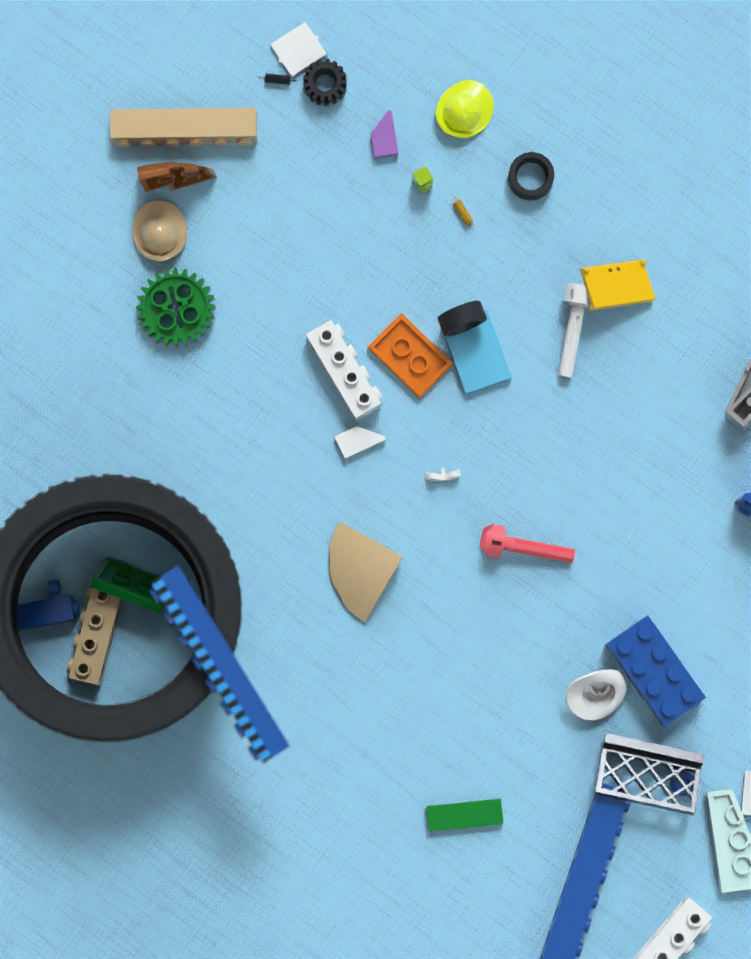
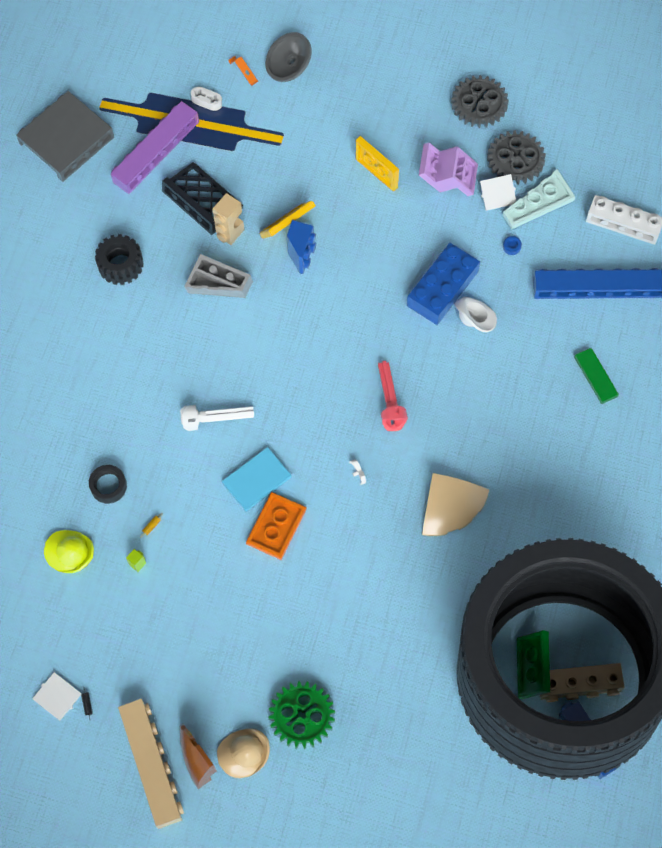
camera: 110 degrees left, 15 degrees down
(219, 664) = (579, 541): blue brick -> none
(321, 68) = (87, 672): black tyre -> none
(343, 369) = (305, 568): white brick -> none
(357, 440) = (355, 541): white tile -> none
(384, 138) = (110, 603): medium lavender tile -> none
(462, 318) = (237, 490): black tyre -> none
(618, 288) = (172, 394): yellow door -> none
(657, 755) = (501, 263): fence -> none

